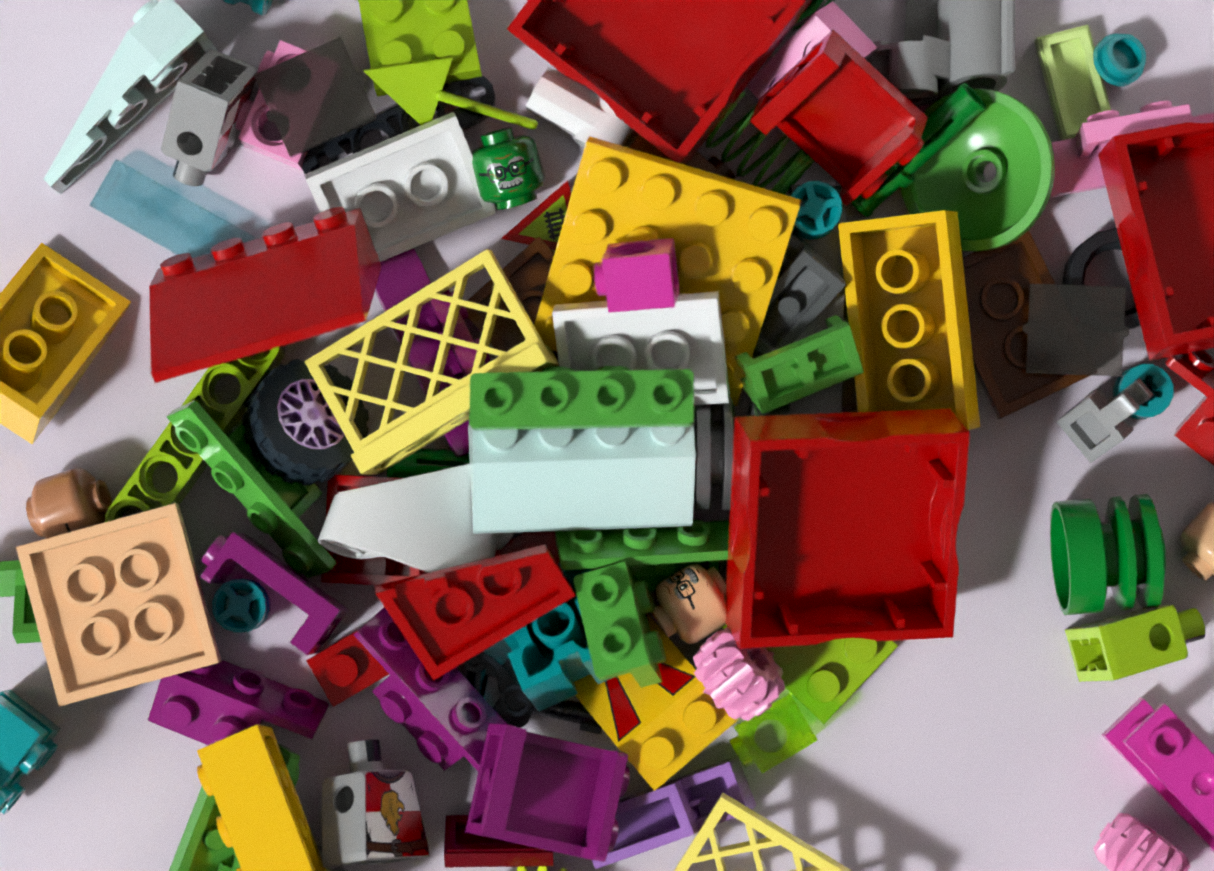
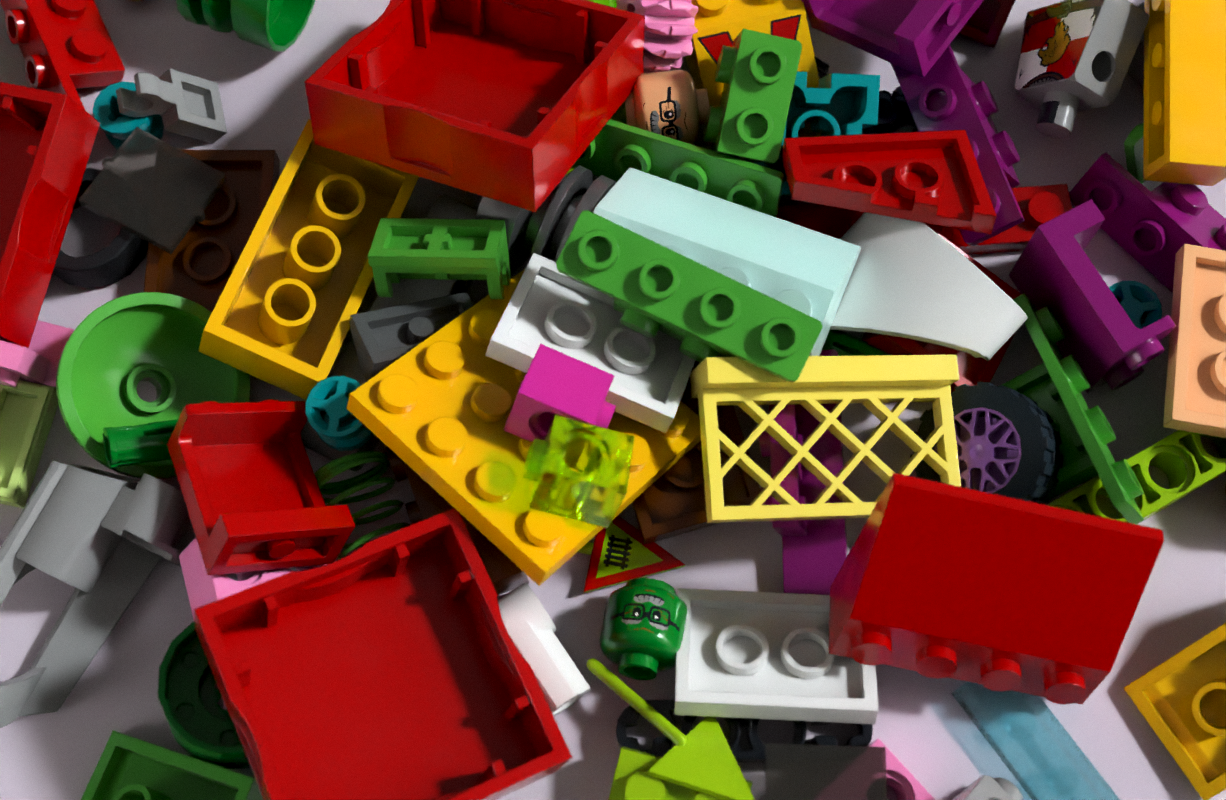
camera: 150 degrees left, 15 degrees down
(584, 244) = (603, 465): none -> clear neon green brick

